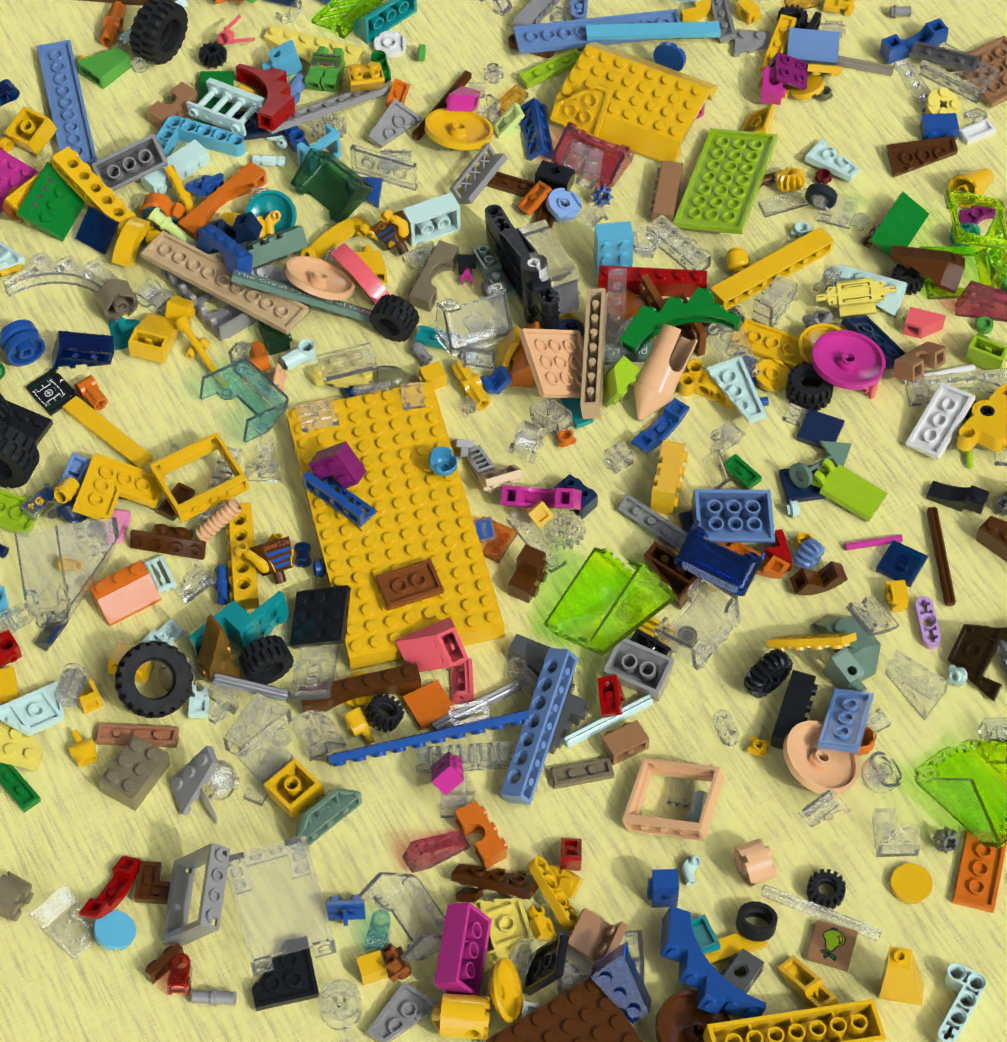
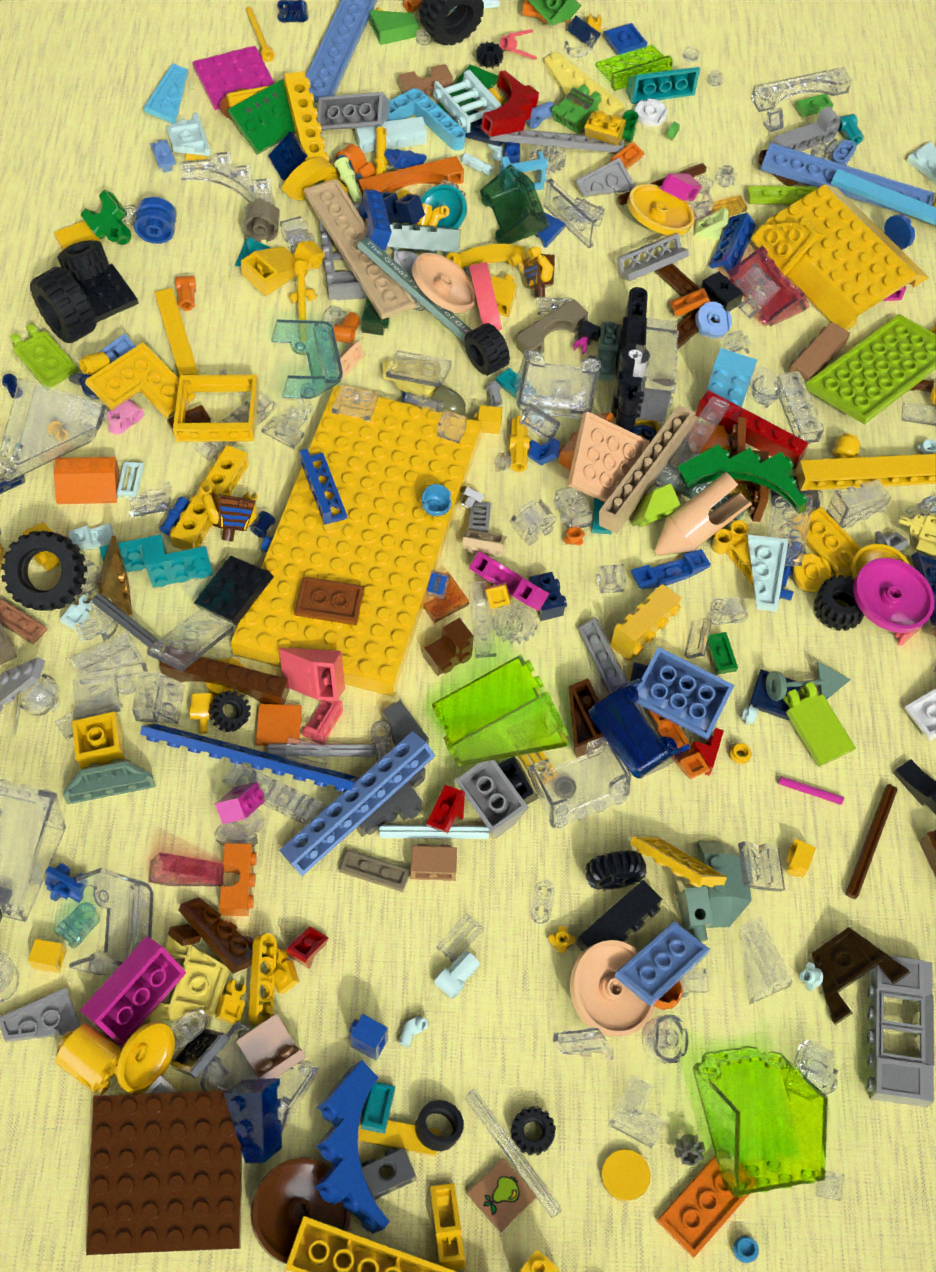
camera: 25 degrees right, 5 degrees up
(31, 130) = (292, 49): yellow brick -> none
(38, 502) = (68, 365): tile -> none
(51, 391) = (156, 275): black piece -> none
(82, 348) = (202, 250): clear blue wedge -> none
(168, 541) = (158, 453): reddish brown bracket -> none
(218, 520) = (207, 455): light nougat piece -> none
(266, 659) = (156, 604): black tyre -> none
(284, 58) = (547, 83): medium azure torso -> none
(303, 353) = (385, 343): light aqua piece -> none
(340, 462) = (339, 455): magenta brick -> none
(395, 965) = (61, 965): dark orange hips -> none
(433, 218) = (582, 277): light aqua brick -> none
(507, 347) = (570, 428): yellow tile -> none
(606, 195) = (750, 326): blue gear -> none
(670, 827) = (412, 922): light nougat window -> none
(754, 862) = (476, 1062): light nougat brick -> none
(794, 415) = (810, 623): clear plate -> none
(809, 554) = (734, 769): medium blue gear -> none
(812, 582) = (722, 799): reddish brown brick -> none
(819, 428) = (827, 649): dark blue tile -> none
(901, 563) = (826, 827): clear blue plate -> none
(930, 615) = (807, 909): lavender beam -> none

